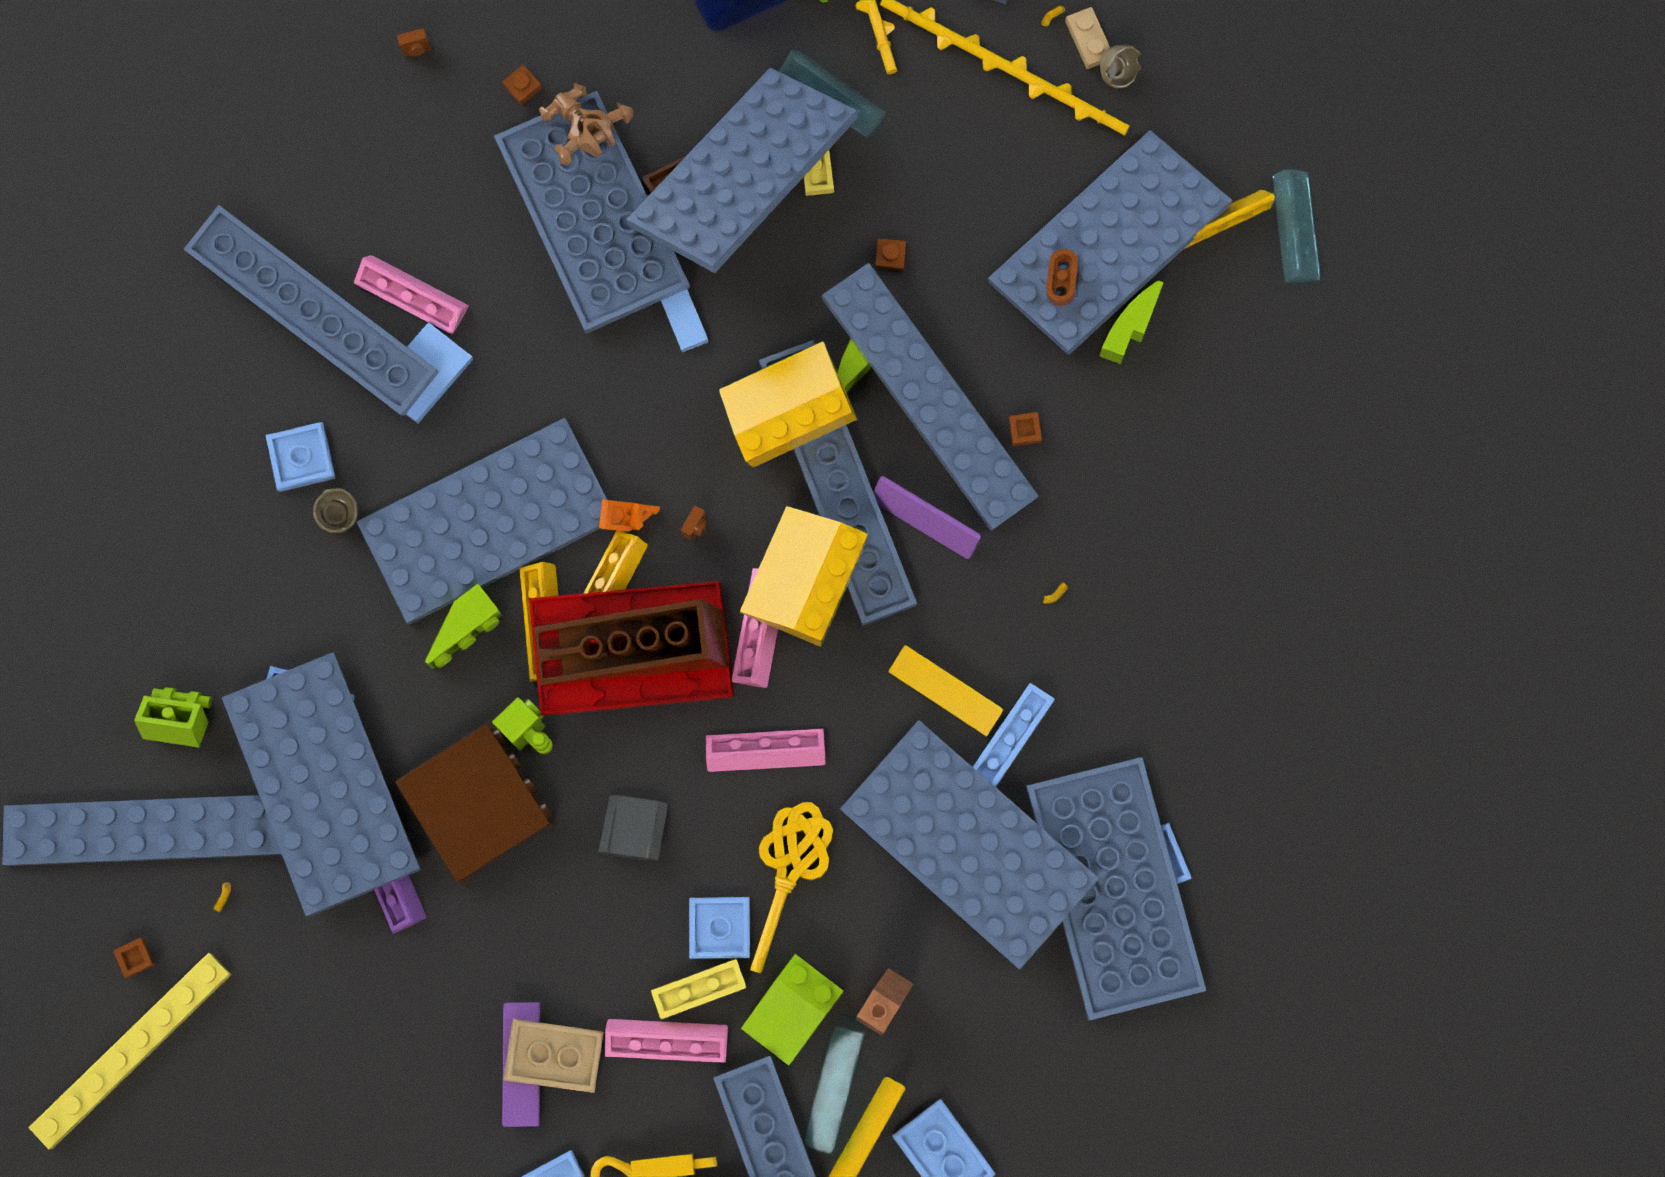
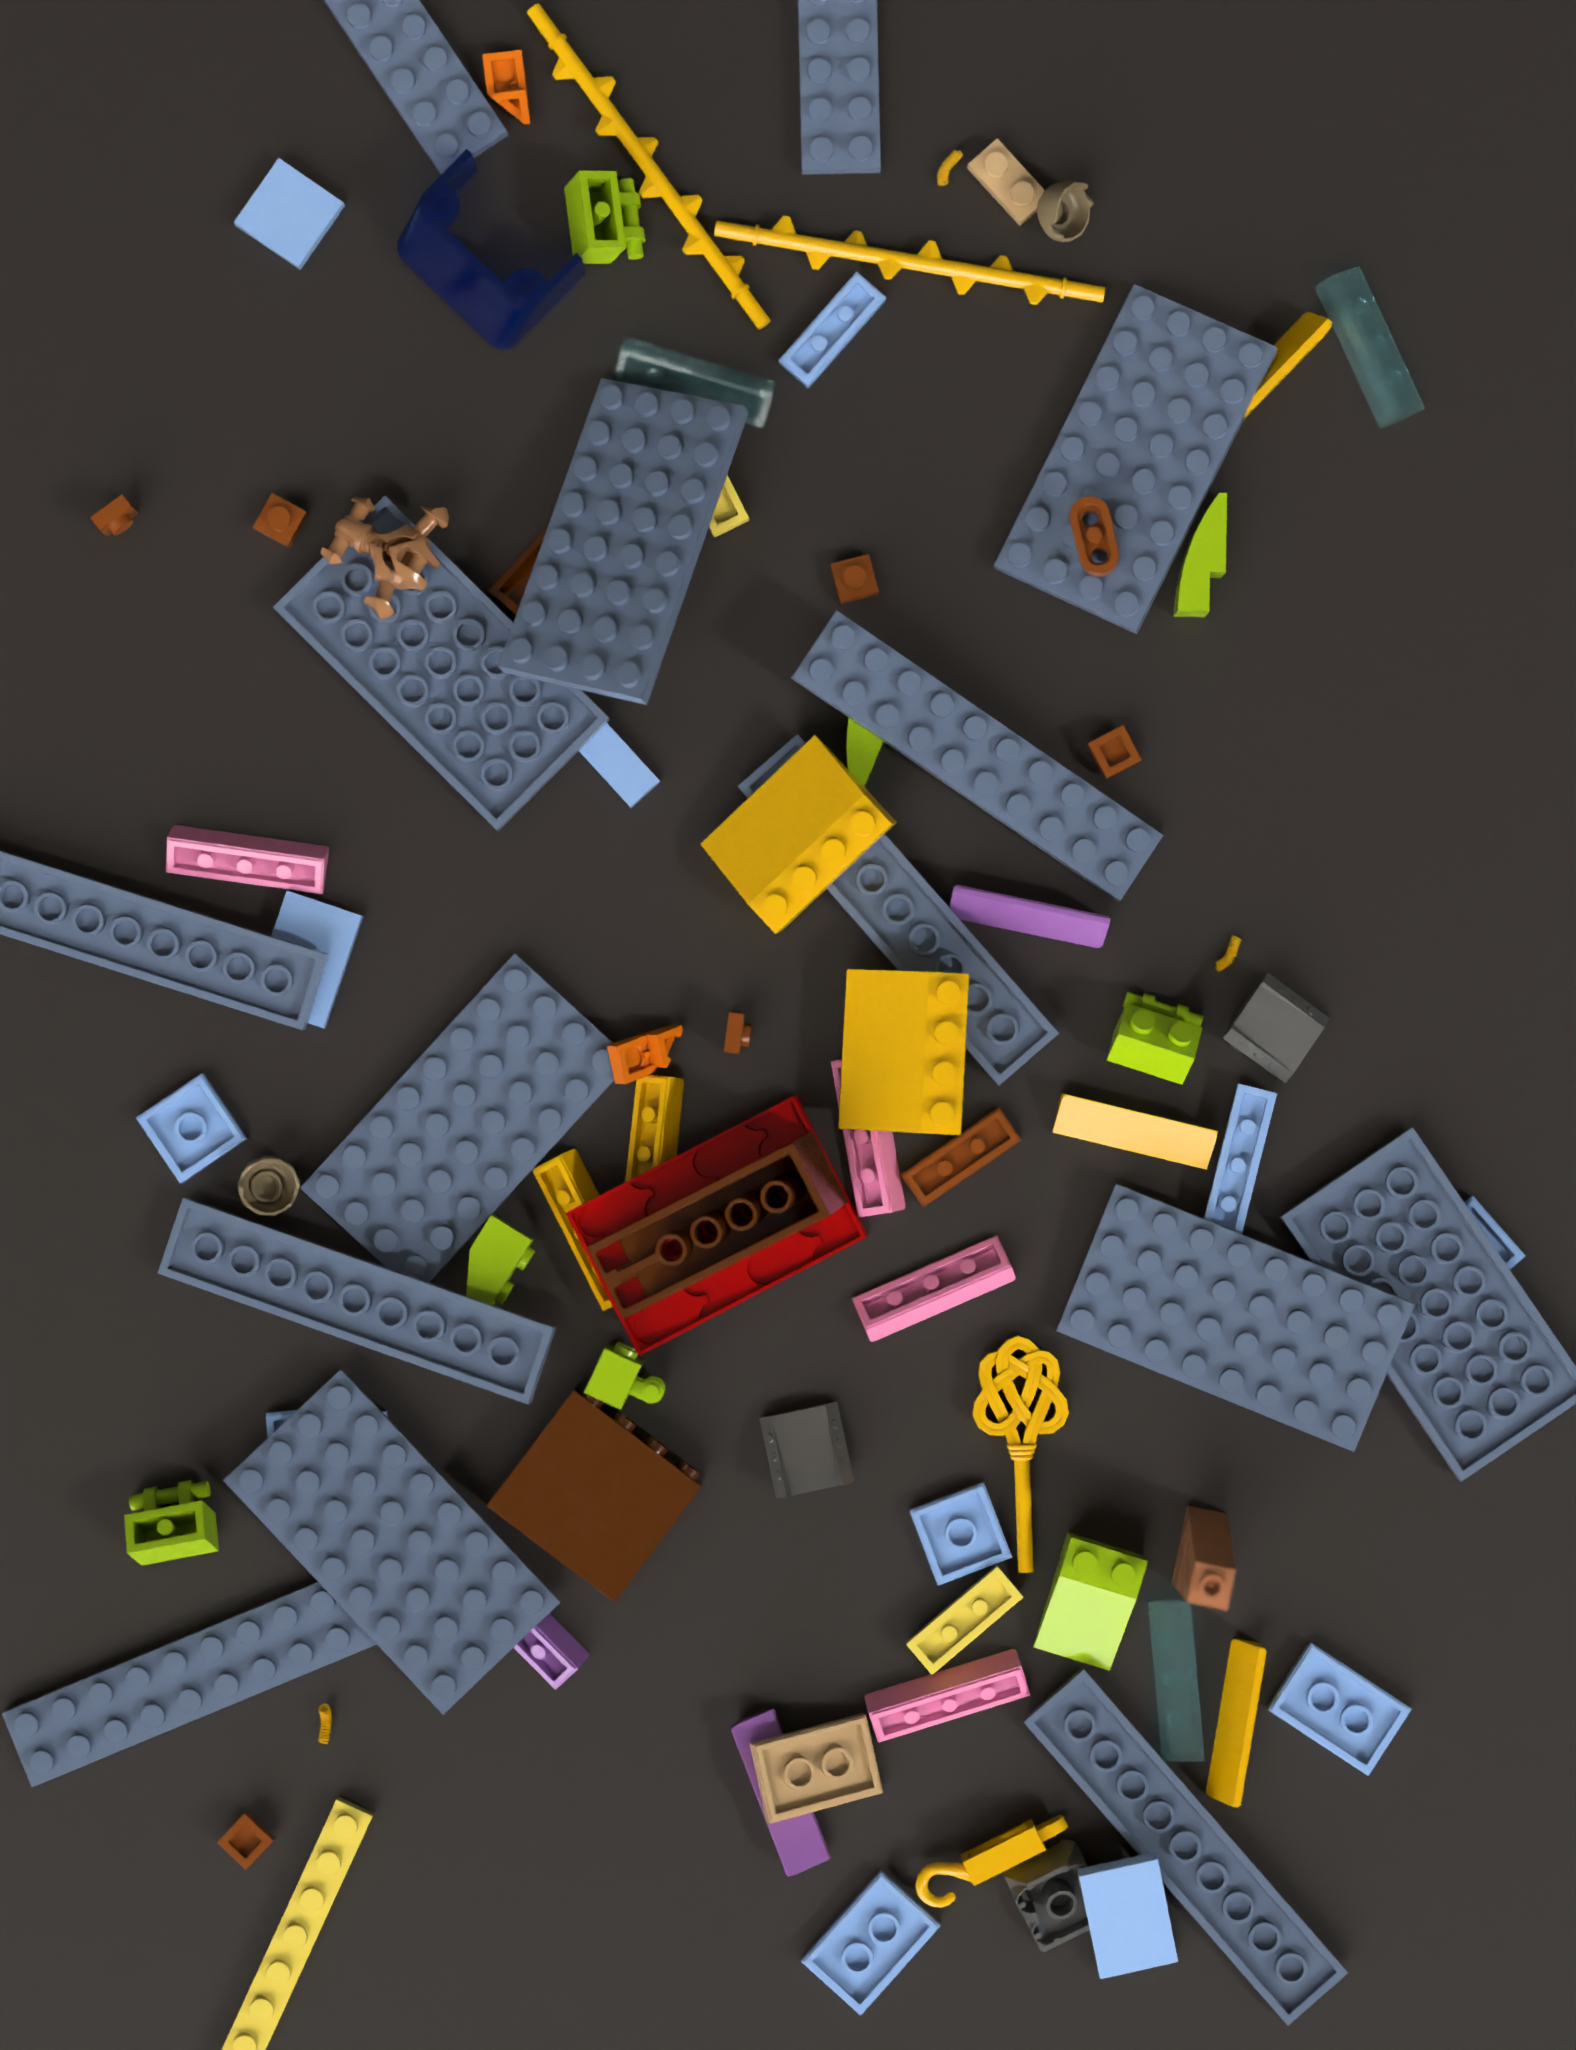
camera: 20 degrees left, 10 degrees up
(364, 608) = (357, 1300): none -> sand blue plate
(818, 665) = (961, 1157): none -> dark orange tile
(936, 91) = (832, 329): none -> light blue tile
(982, 630) = (1156, 1037): none -> lime brick
(1069, 654) = (1275, 1027): none -> dark grey slope

